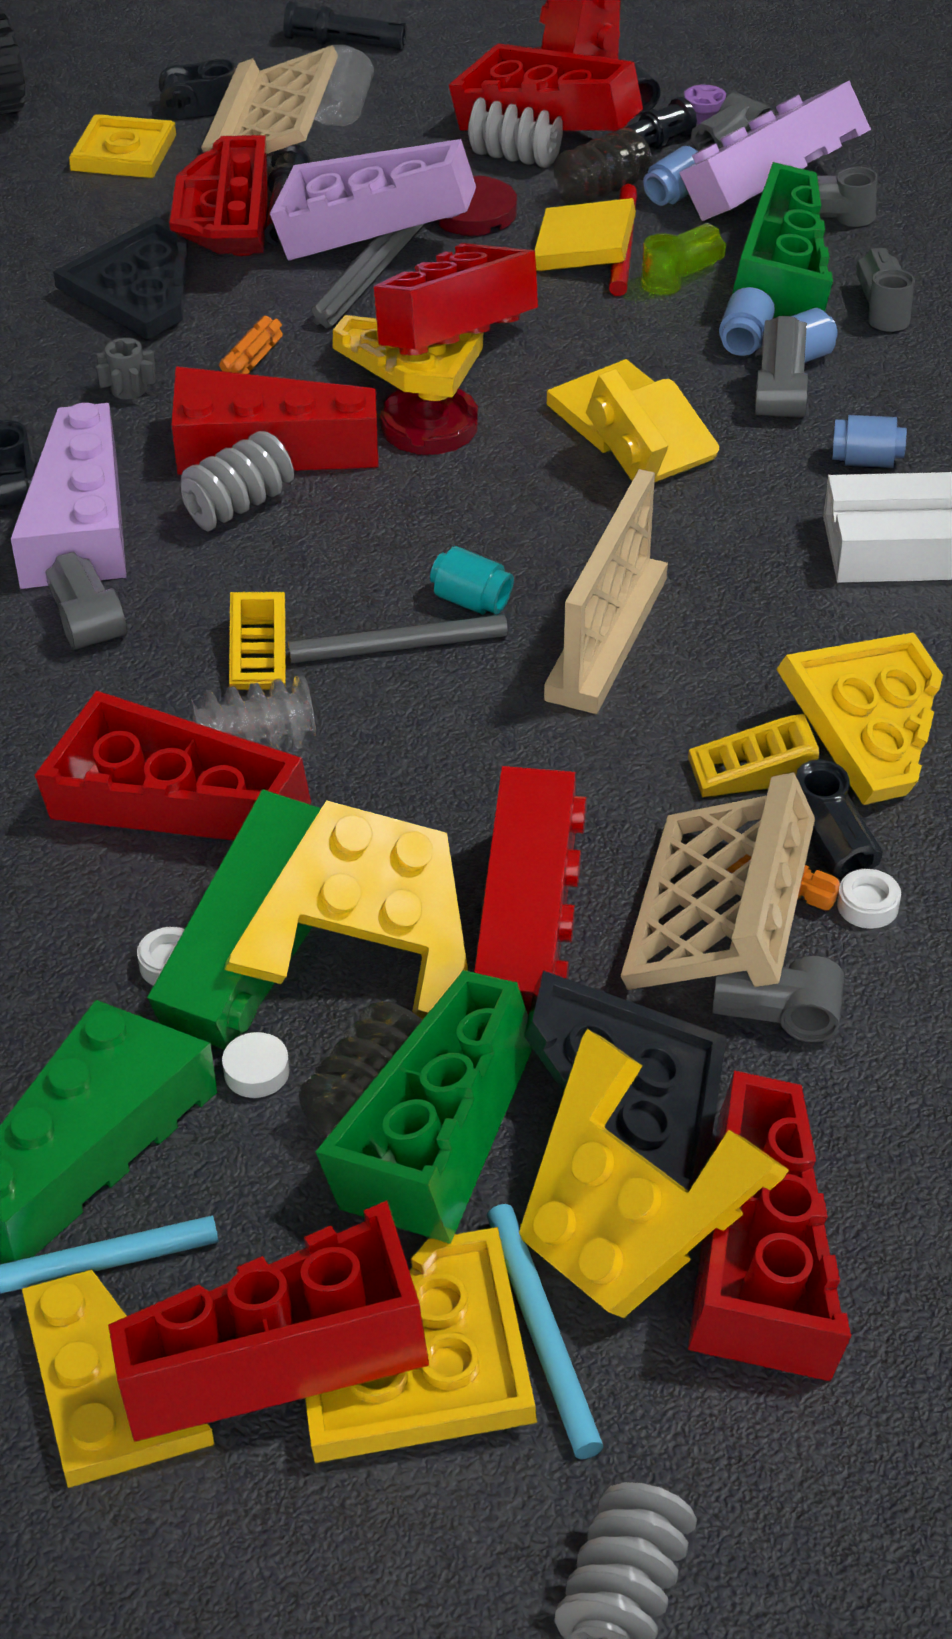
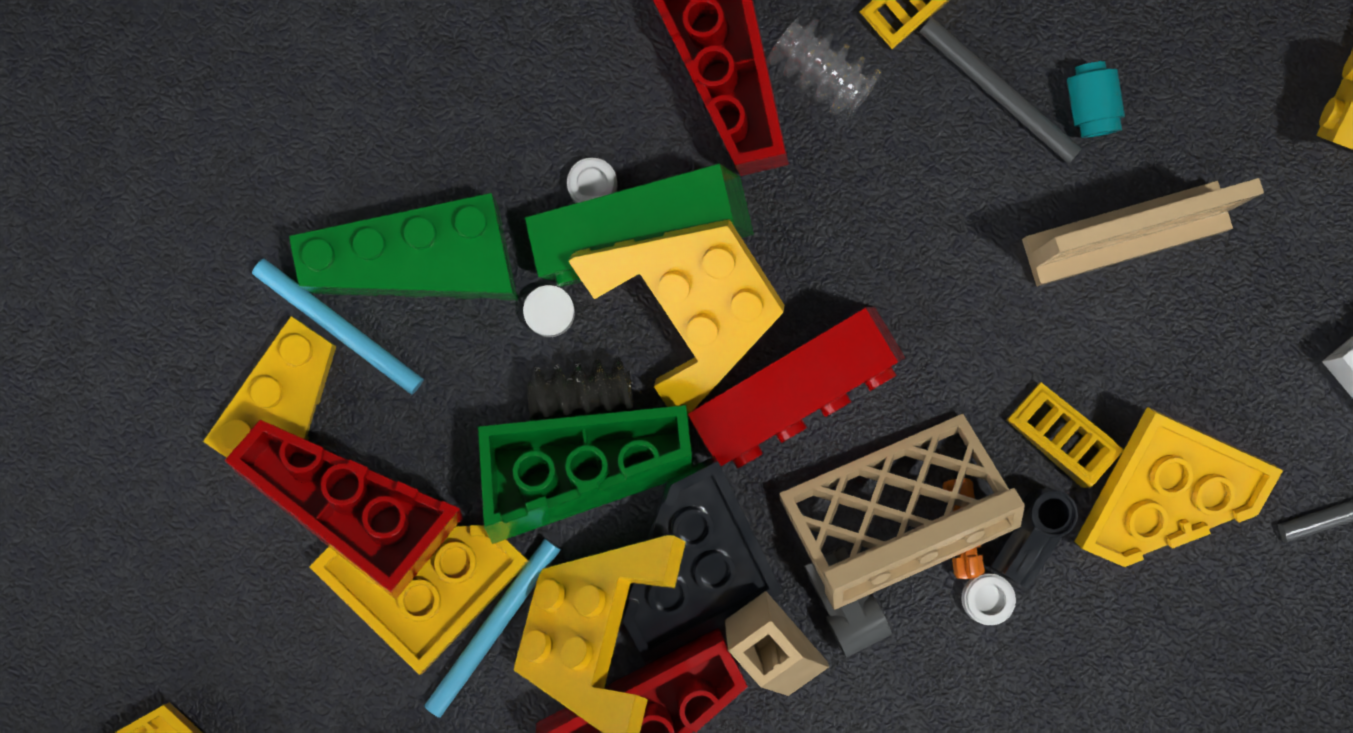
camera: 50 degrees right, 40 degrees up
(781, 1046) = (772, 647): none -> tan slope

